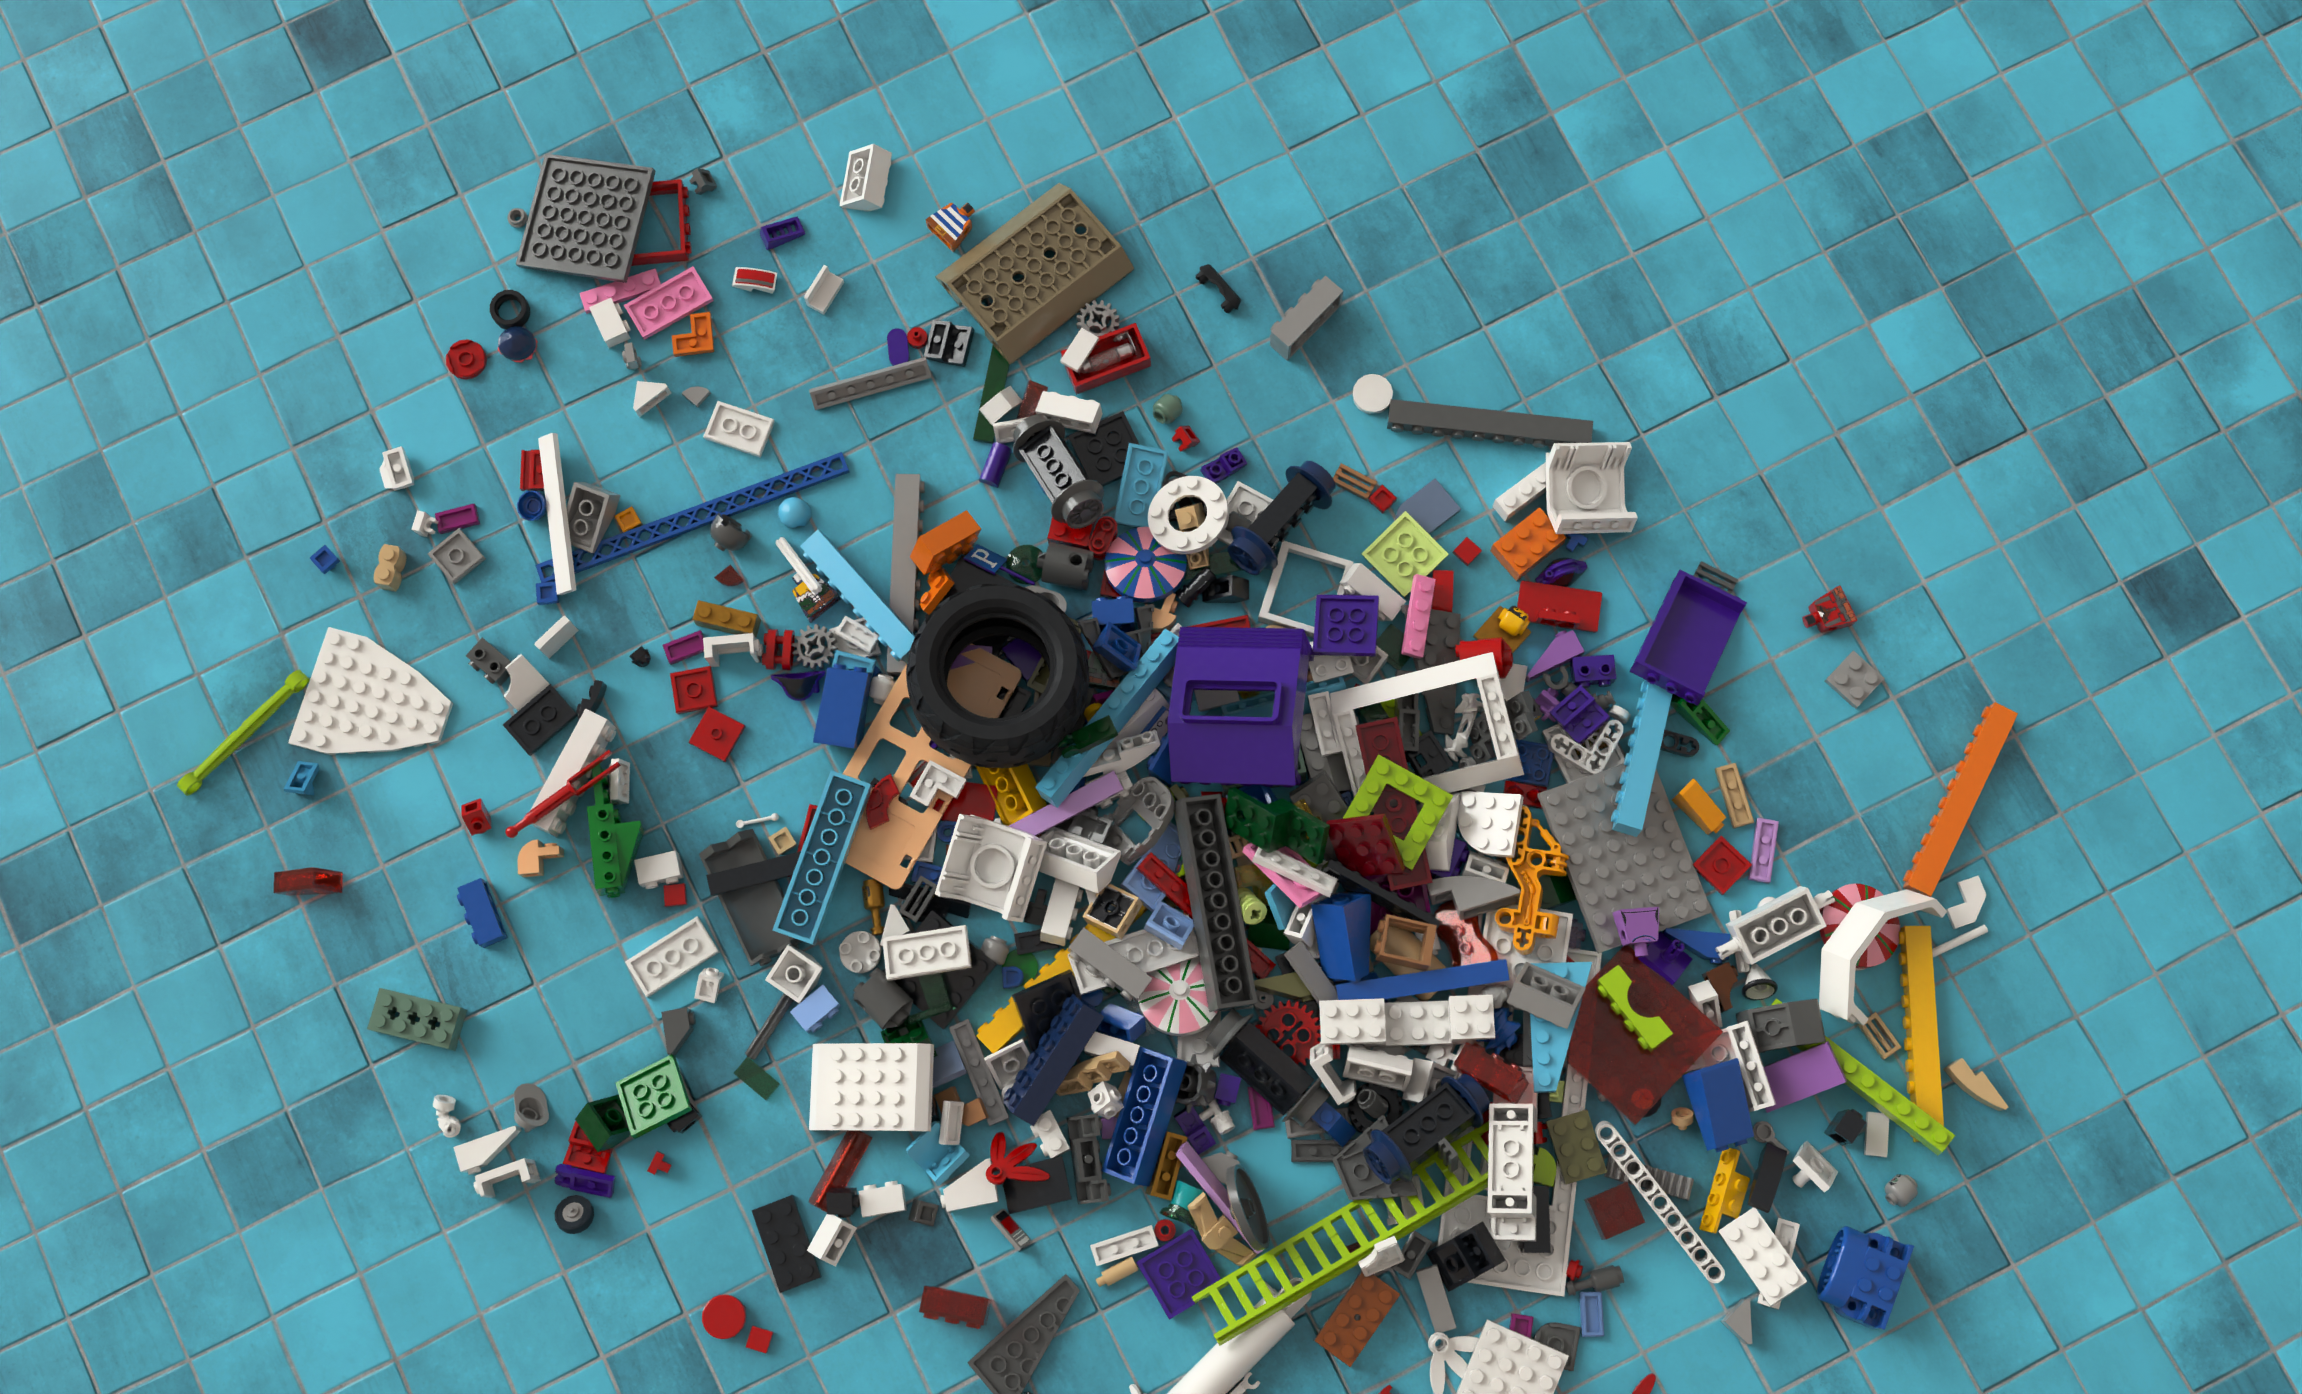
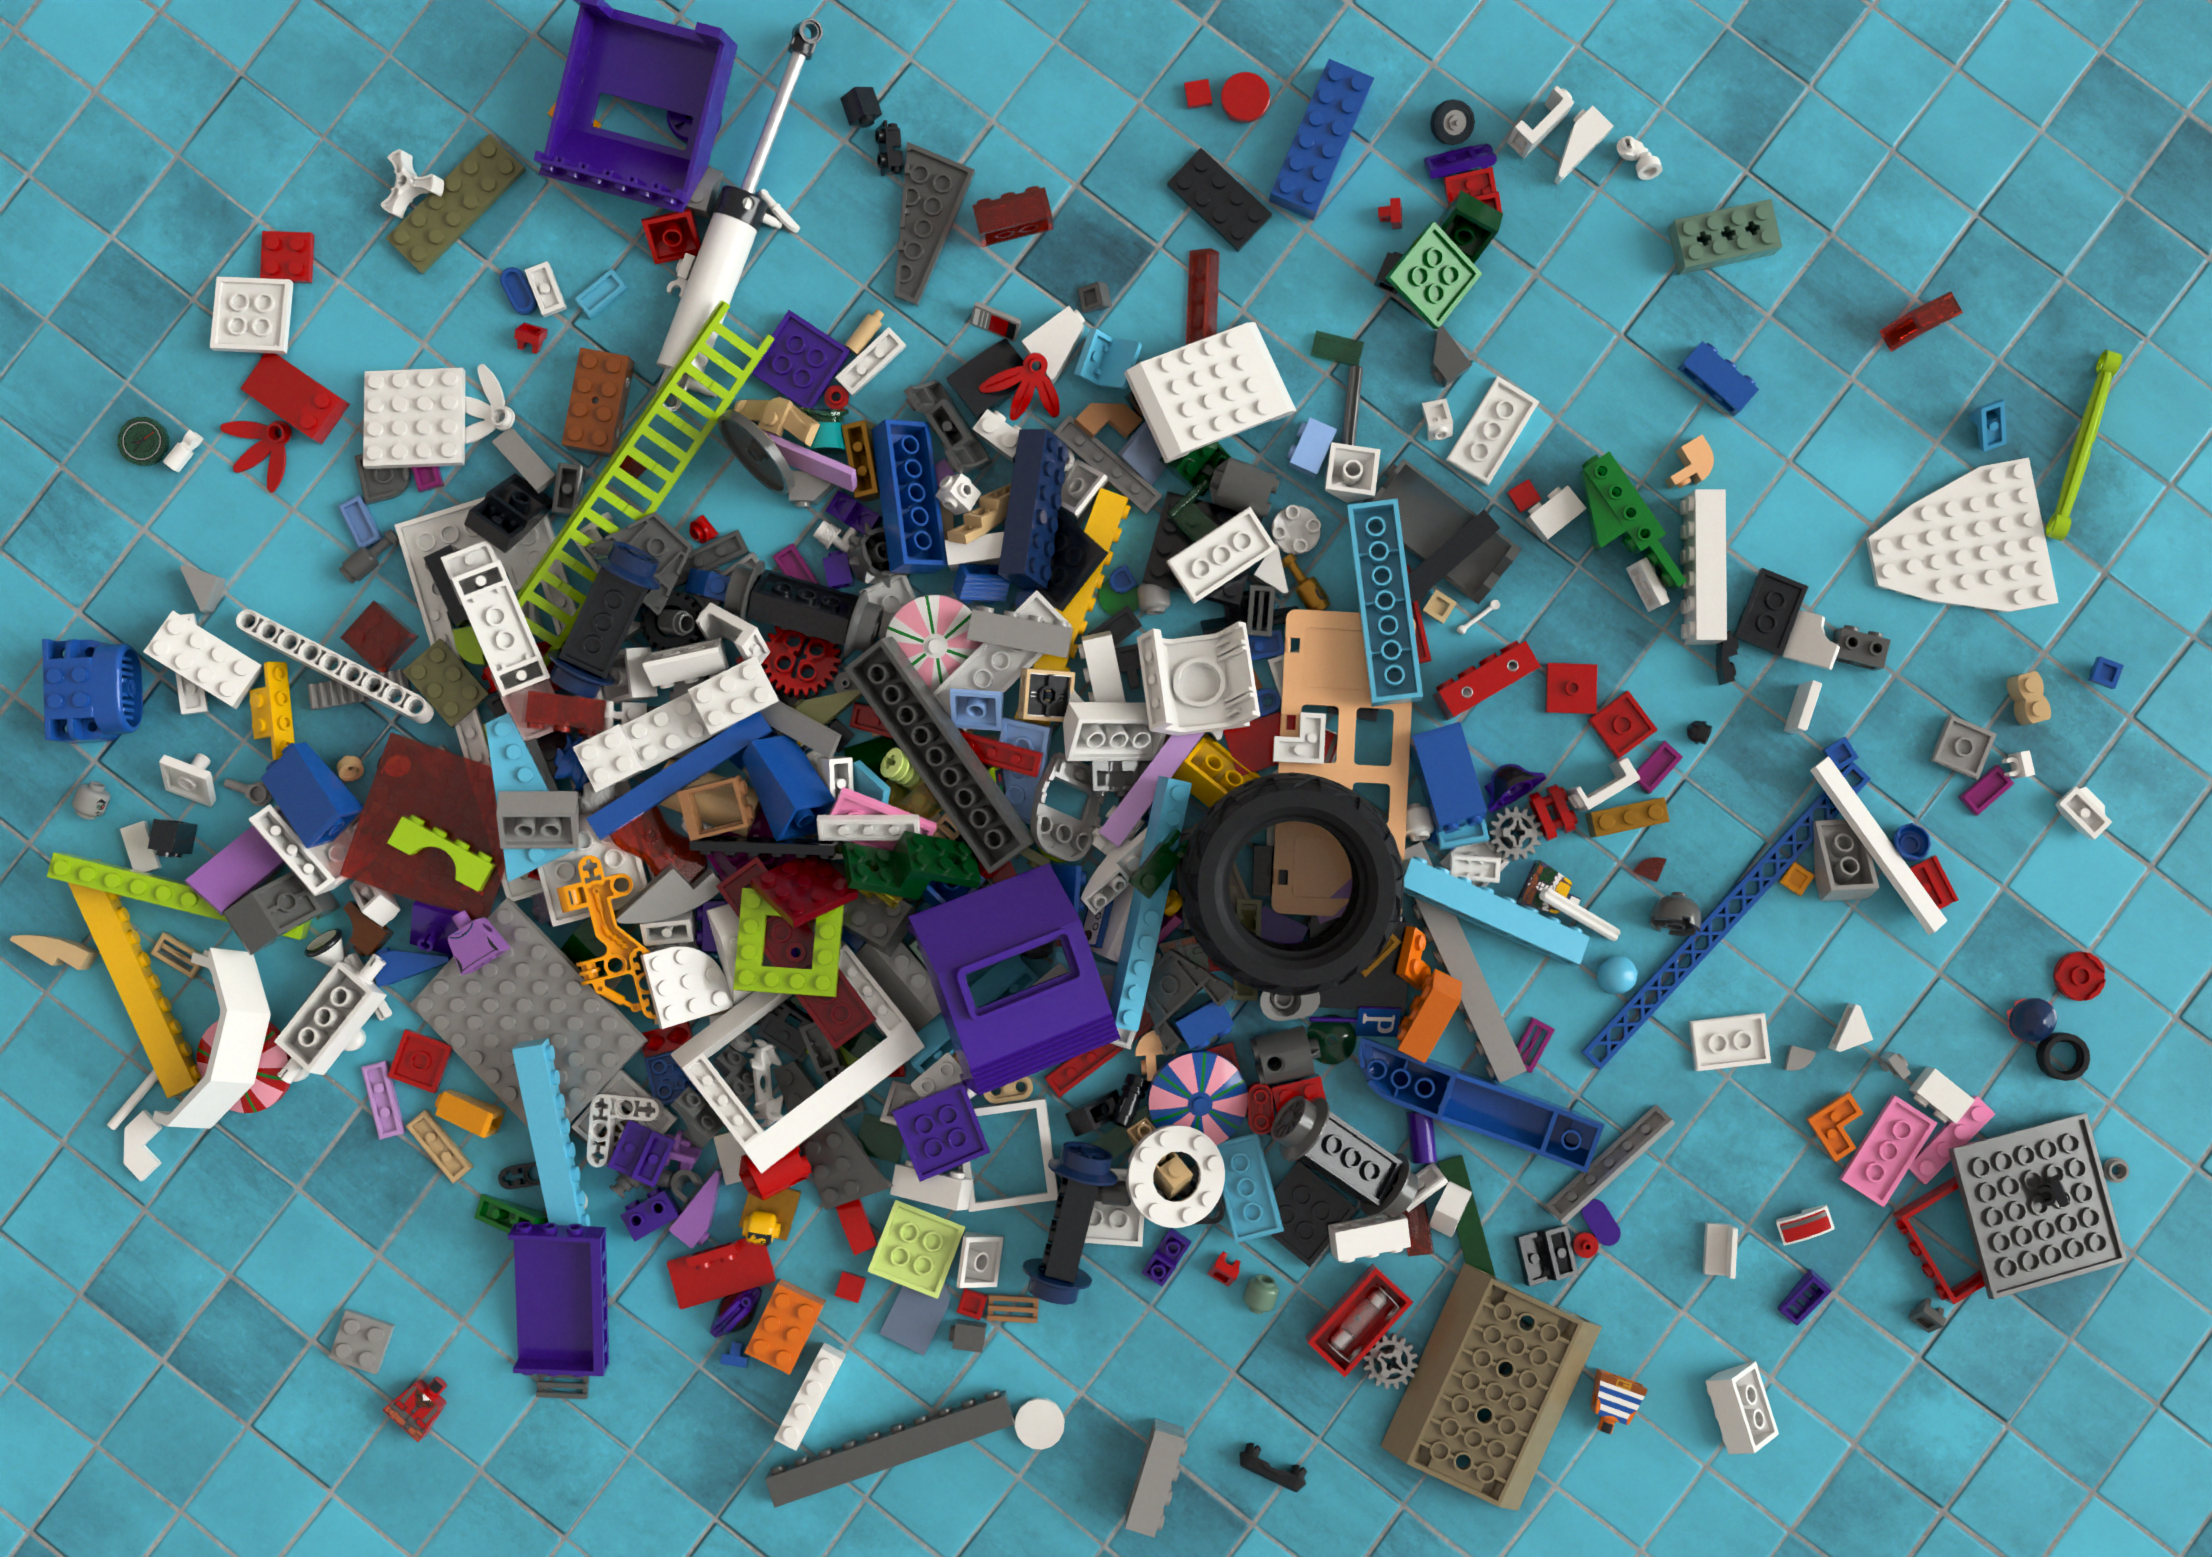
camera: 155 degrees right, 10 degrees up
(476, 817) = (1781, 474): red brick -> none
(530, 1107) = (1556, 206): light grey piece -> none
(562, 795) = (1700, 530): red piece -> none
(567, 219) = (2057, 1192): none -> black tile
(682, 1251) = (1321, 139): none -> blue brick
(777, 767) = (1491, 676): none -> red piece
(831, 1239) = (1174, 223): white brick -> none
(842, 1201) = (1182, 264): black brick -> none
(872, 508) = (1544, 1042): none -> magenta tile
(880, 800) = (1355, 694): red tile -> none
(882, 1200) = (1142, 288): white brick -> none
(941, 464) = (1480, 1105): none -> blue slope
(951, 1122) = (1108, 396): white tile -> none
(1079, 350) = (1392, 1313): white tile -> none
(1118, 648) = (1178, 984): blue slope -> none
(1320, 1174) = (702, 530): none -> red plate
(1324, 724) = (913, 1009): white plate -> none
(1362, 526) = (979, 1260): none -> white slope
(1384, 1255) = (593, 466): white tile -> none
(1395, 477) = (968, 1335): none -> dark grey brick
(1418, 616) = (867, 1181): bright pink plate -> none
(1448, 1154) = (568, 602): dark grey tile -> none
(1574, 1270) = (395, 557): red plate -> none
(1588, 488) = (744, 1421): white panel -> none
(1619, 714) = (602, 1178): white tile -> none
(1767, 1177) = (233, 745): black slope -> none
(1960, 799) = (192, 1257): orange brick -> none

